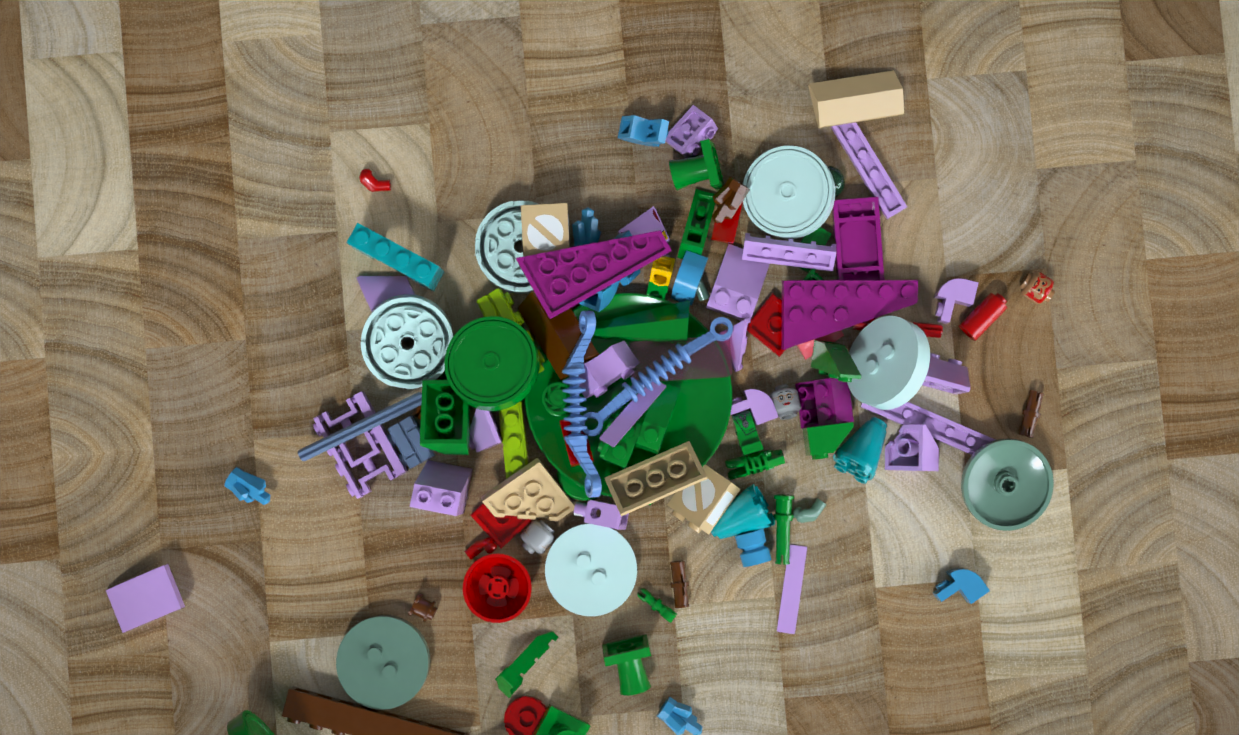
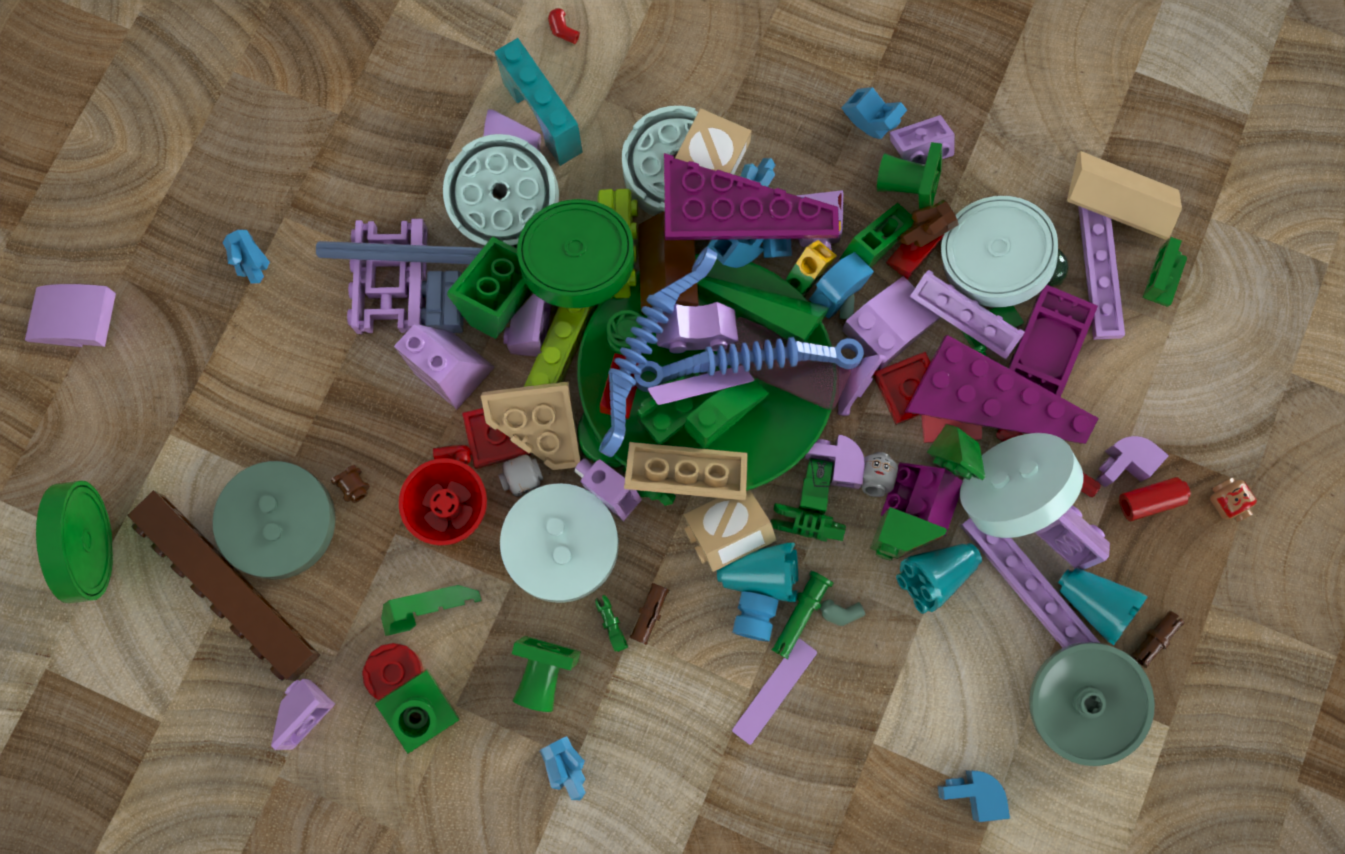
camera: 30 degrees right, 10 degrees down
(912, 450) = (997, 605): lavender slope -> none
(914, 144) = (1165, 273): none -> green bracket
(981, 410) = (1101, 602): none -> teal cone

